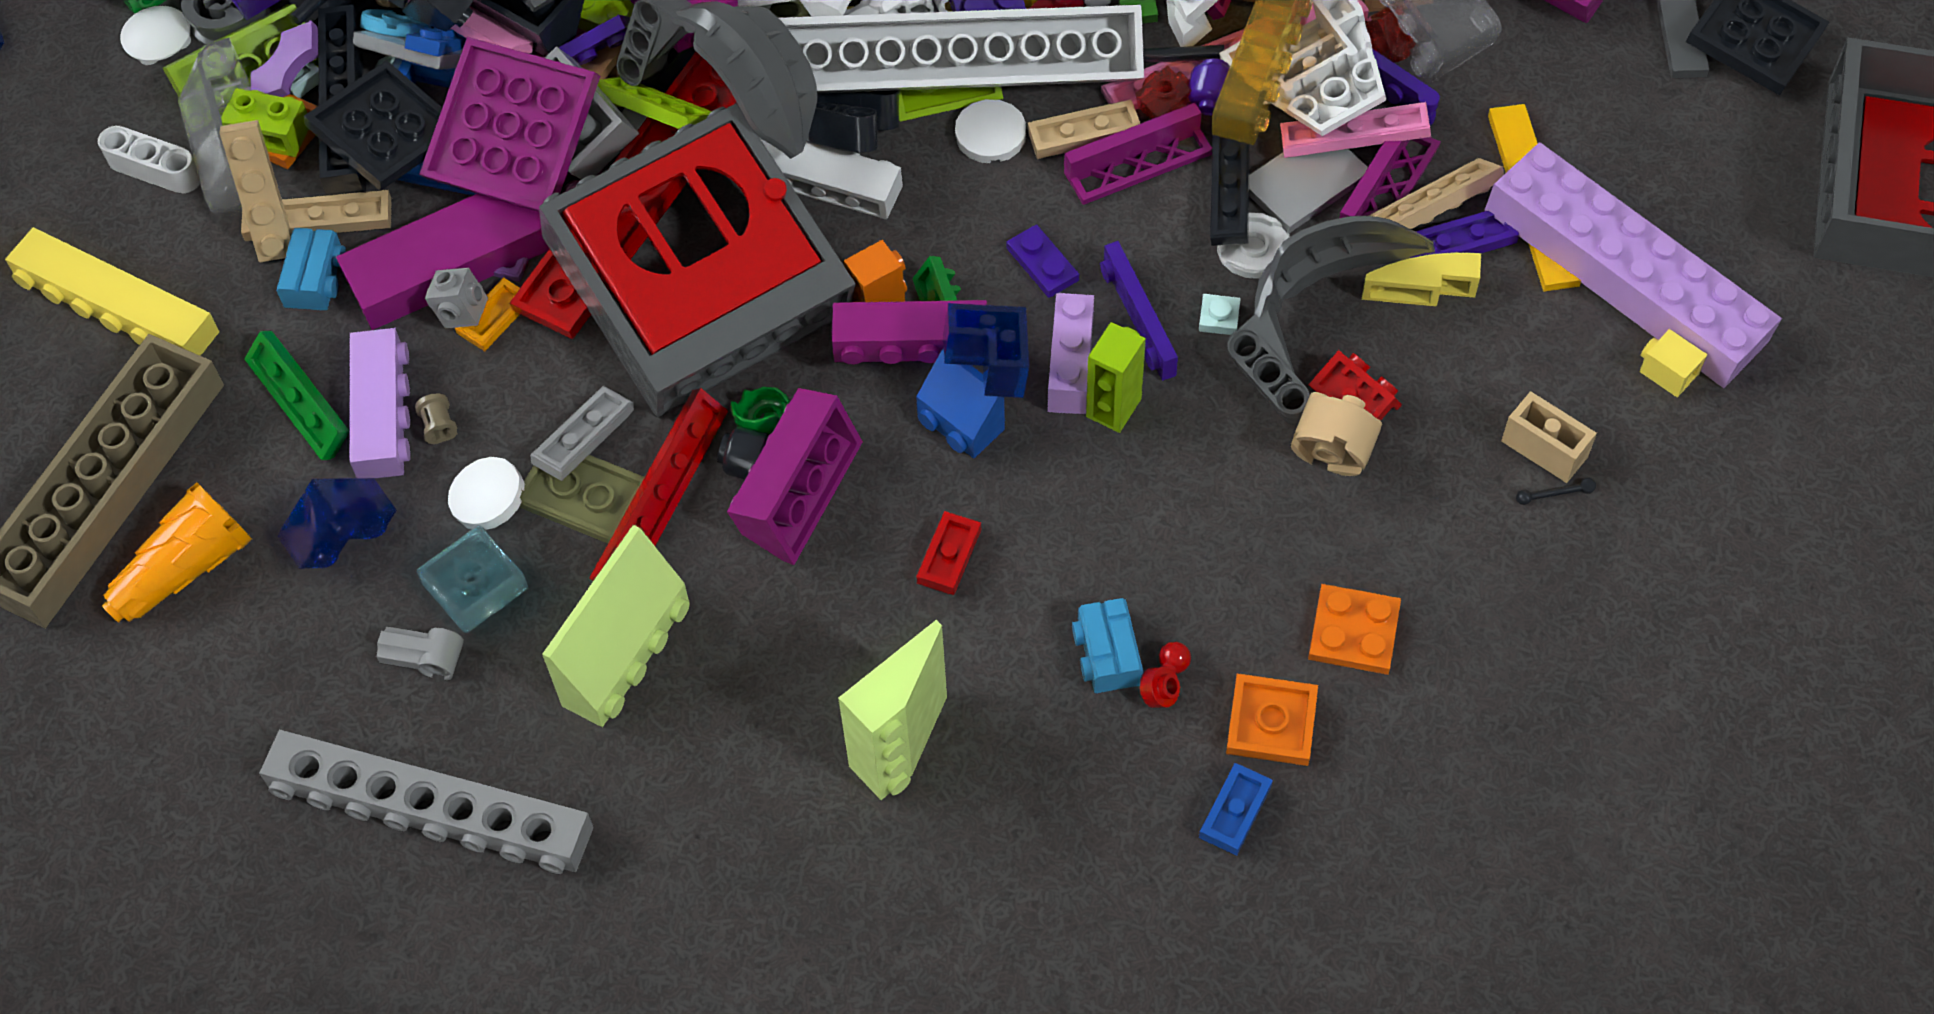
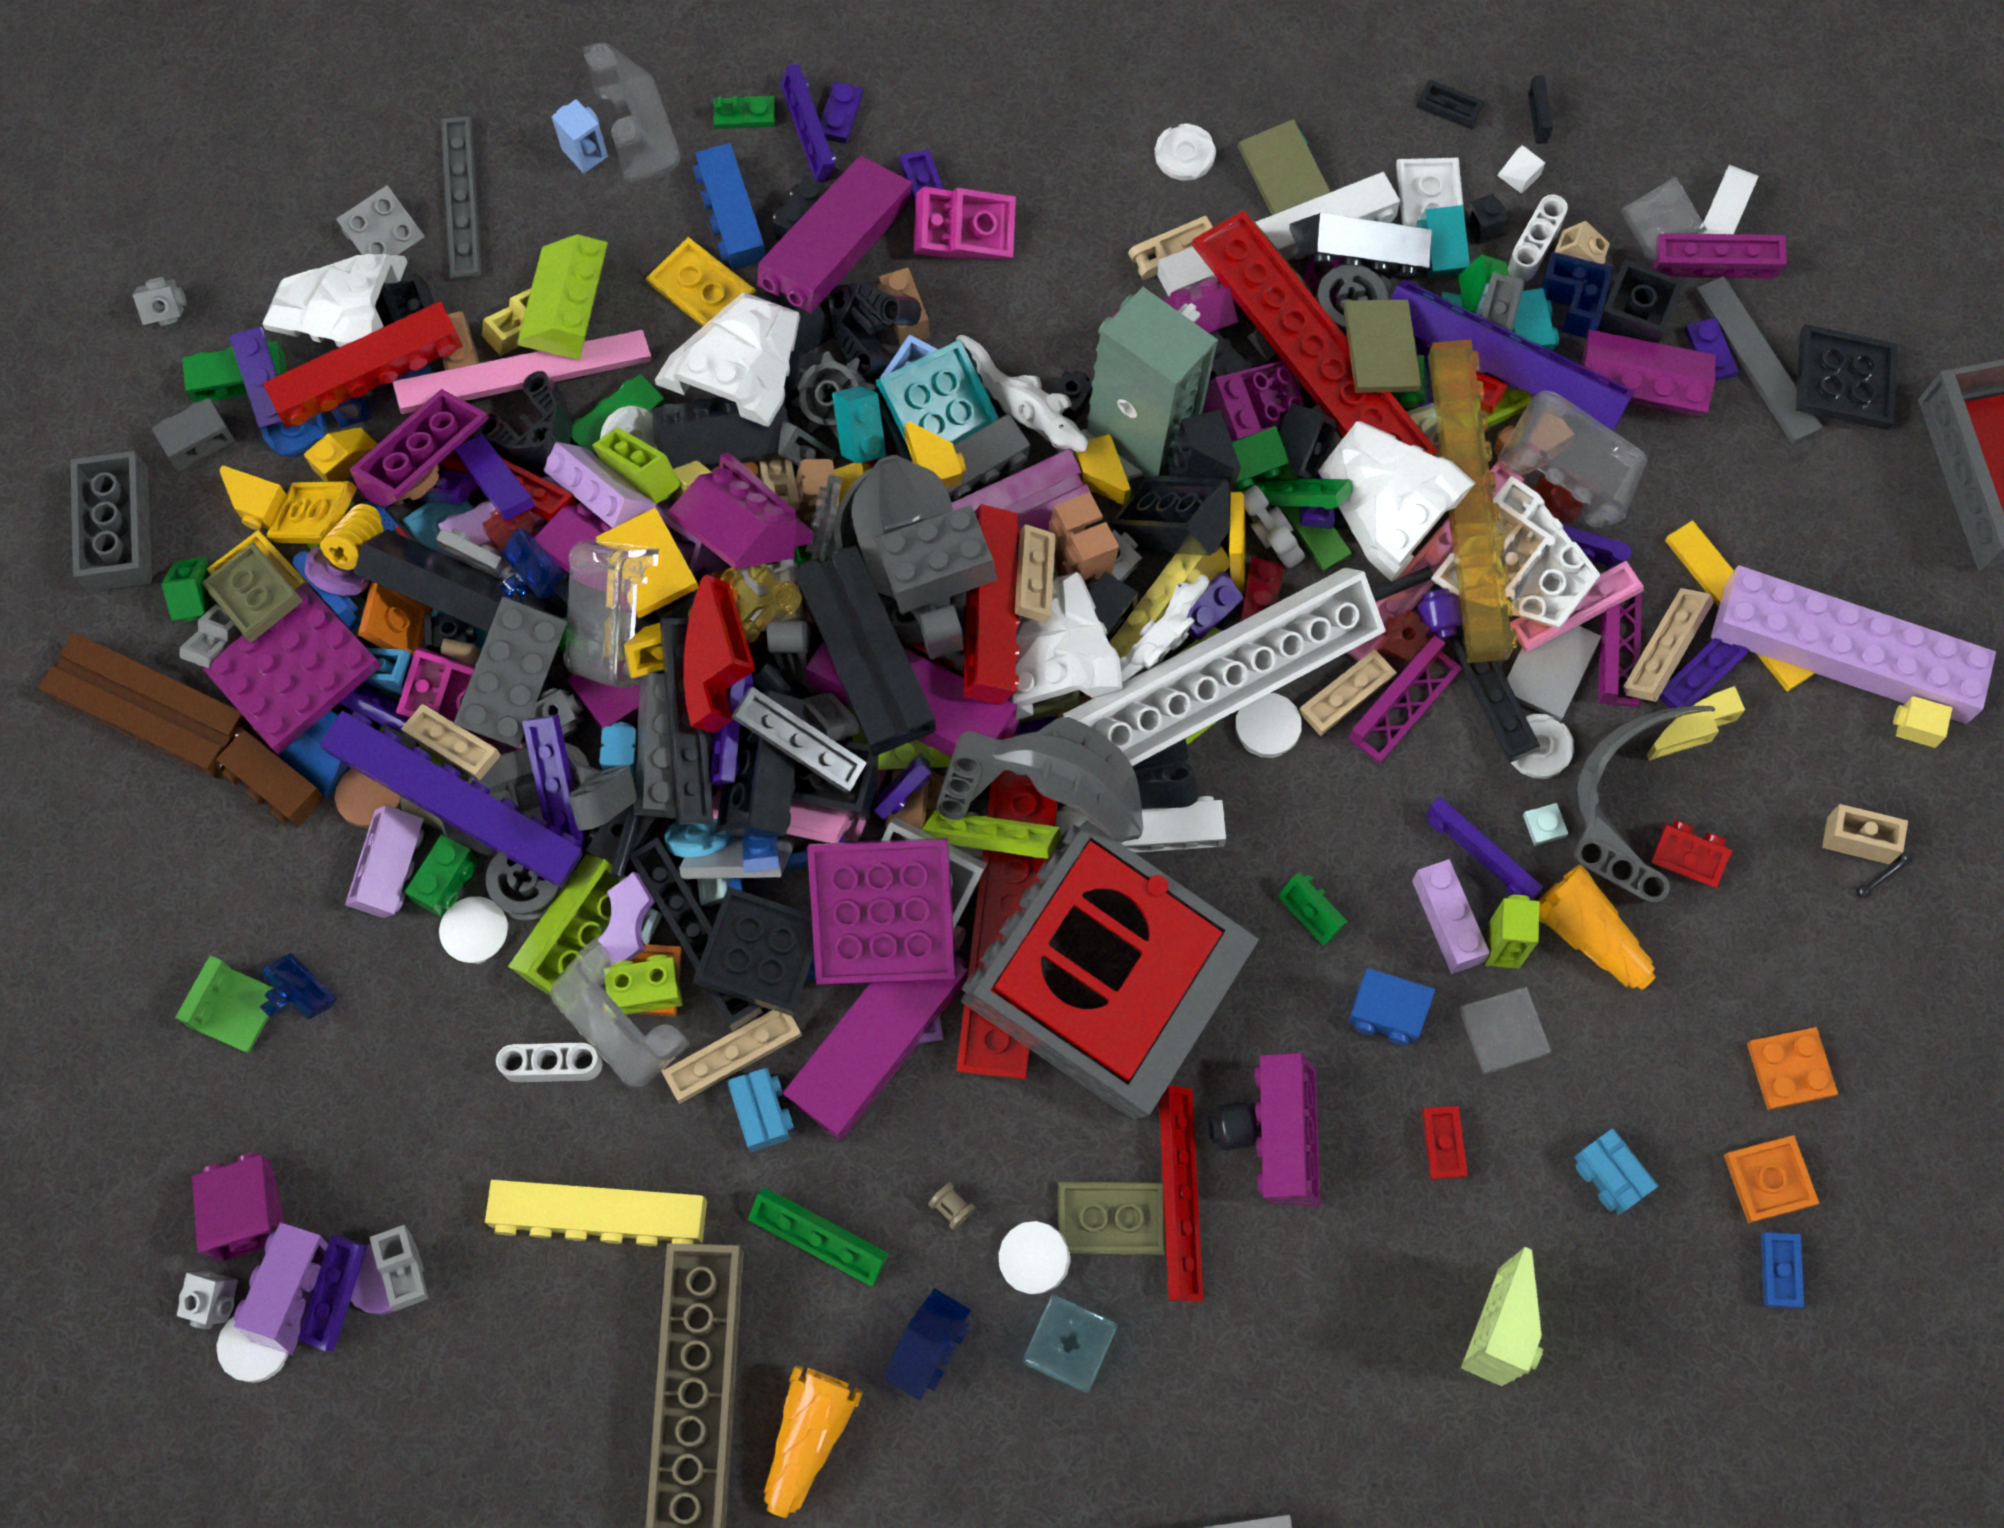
camera: 25 degrees left, 10 degrees up
(257, 189) = (690, 1066): tan plate -> none
(377, 404) = (894, 1215): lavender brick -> none
(428, 652) = (1069, 1425): light grey piece -> none
(456, 298) = (910, 1087): light grey brick -> none
(495, 316) = (939, 1083): light orange tile -> none
(582, 433) = (1084, 1165): light grey tile -> none
(616, 629) = (1228, 1344): yellowish green slope -> none
(757, 402) = (1235, 1079): green hair -> none
(877, 274) = (1264, 918): orange brick -> none
(890, 330) = (1320, 962): magenta slope -> none
(991, 339) = (1415, 952): clear blue brick -> none
(1042, 261) = (1376, 834): dark purple plate -> none
(1069, 477) = (1504, 1030): none -> clear plate
(1160, 684) = (1672, 1187): red plate -> none
(1209, 412) = (1592, 924): none -> light orange cone
(1336, 433) = (1705, 905): tan brick -> none

